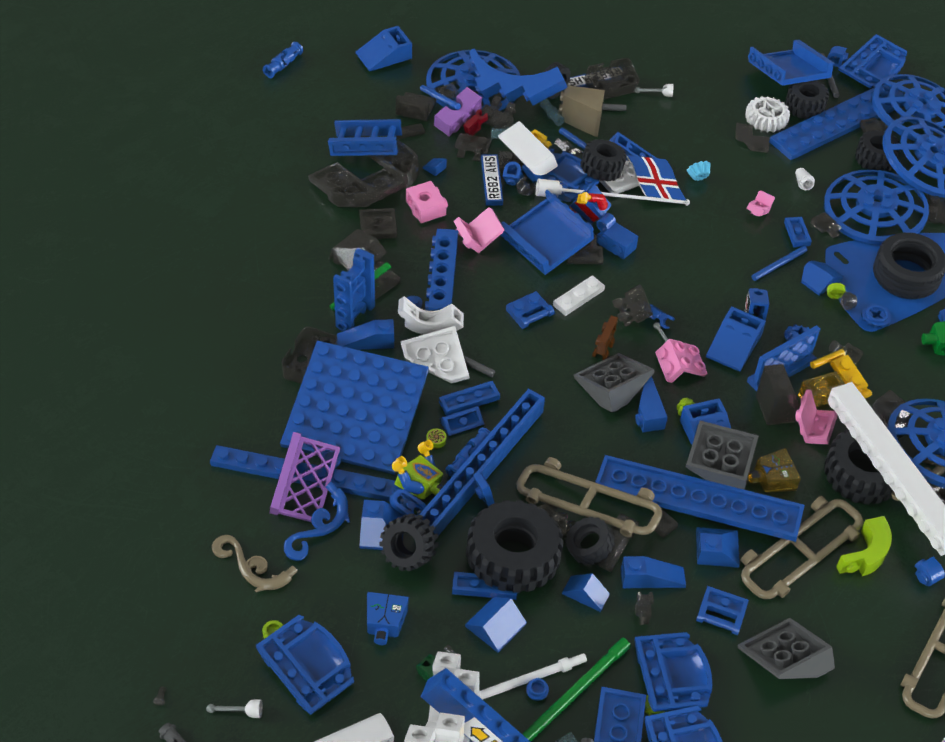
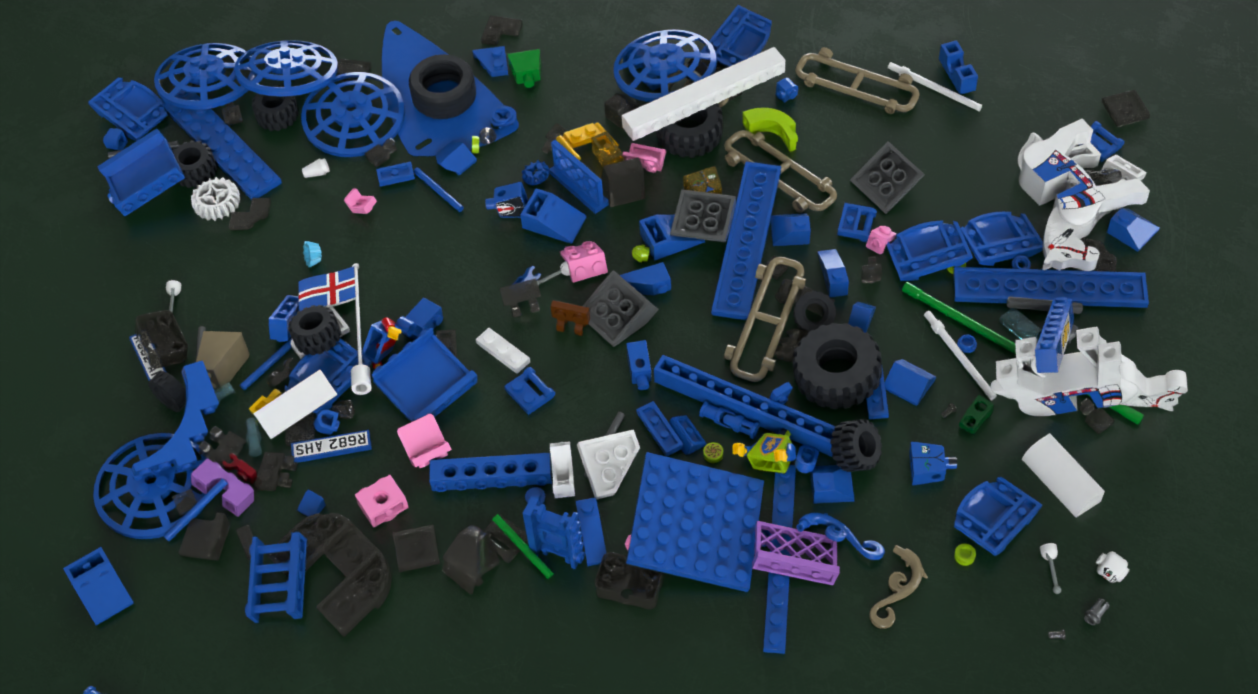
camera: 90 degrees left, 5 degrees up
(544, 382) = (639, 364): none -> blue torso
(698, 629) = (879, 238): none -> bright pink bracket

